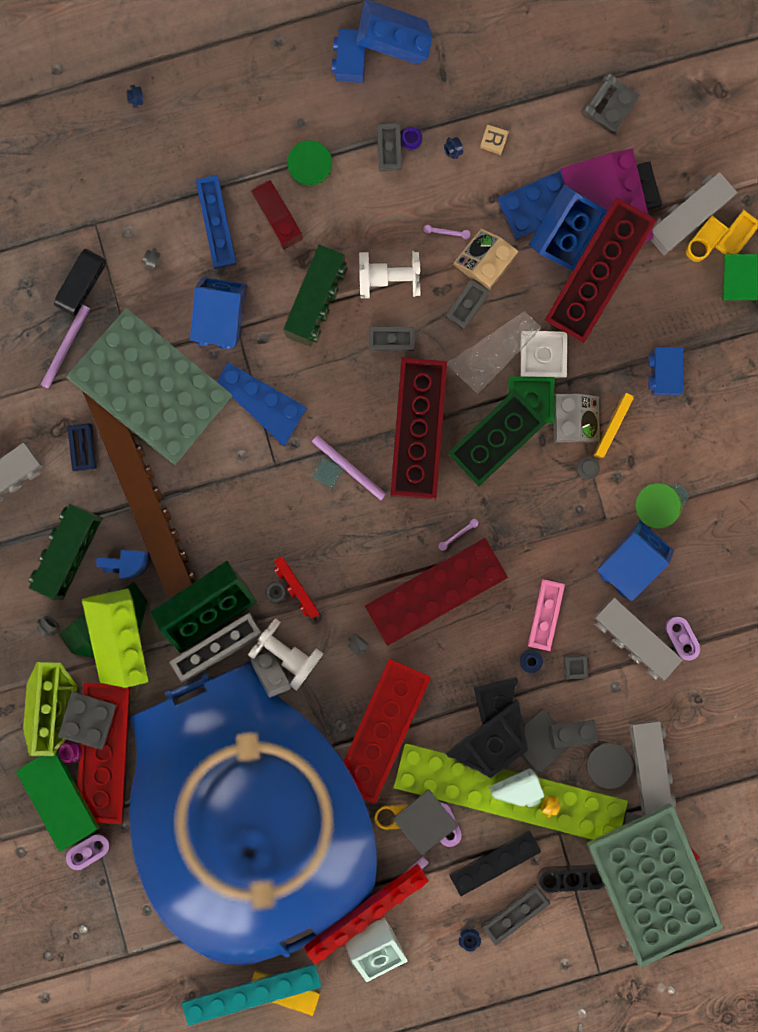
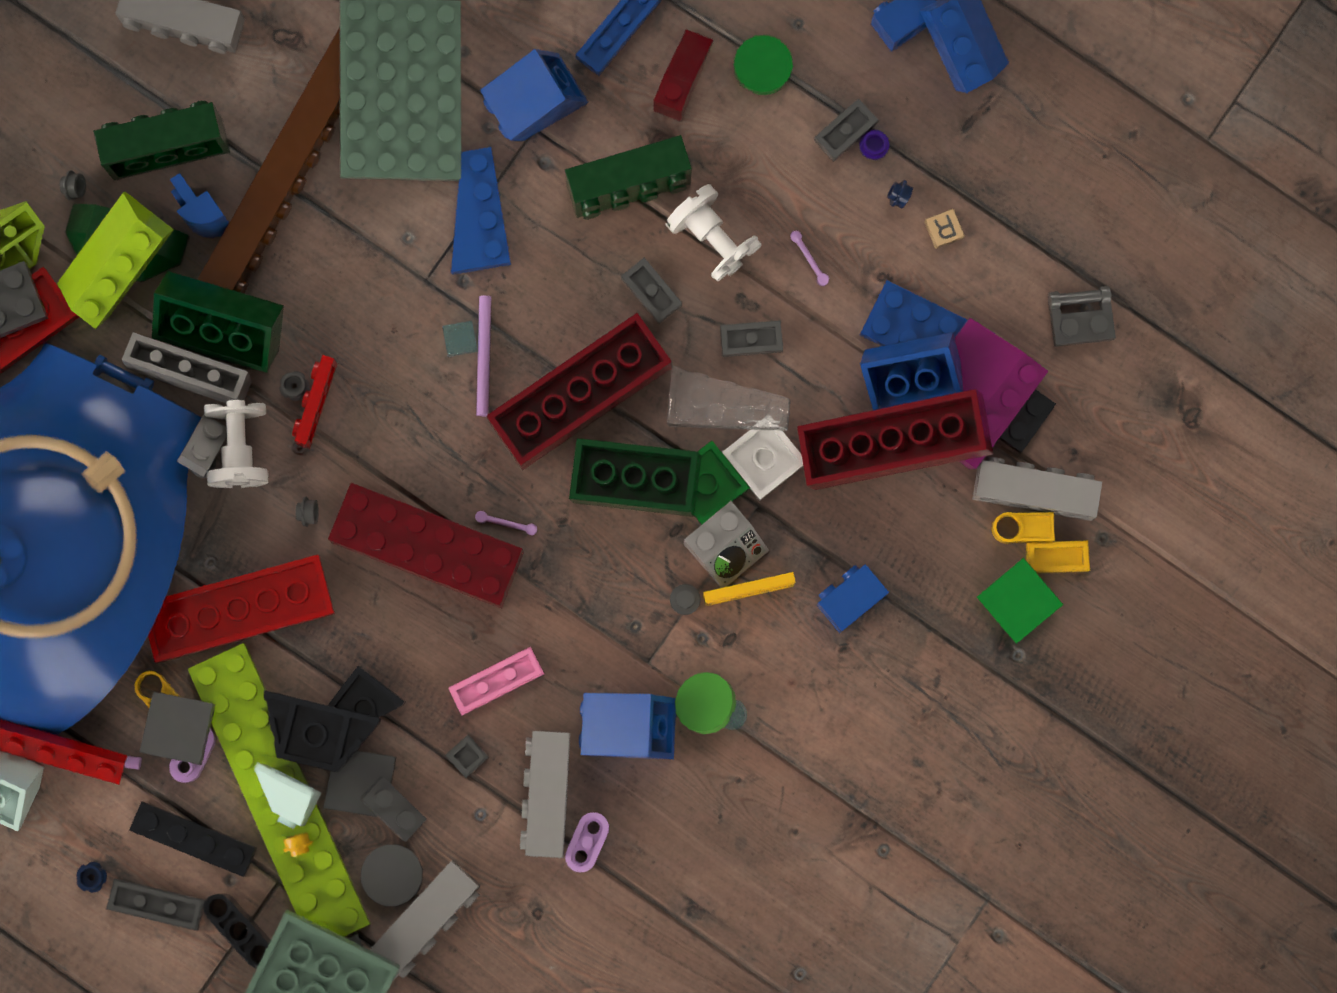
camera: 45 degrees right, 5 degrees down
(84, 466) = (292, 81): dark blue tile -> none
(486, 258) = (813, 320): tan slope -> none
(525, 656) = (444, 704): dark blue plate -> none

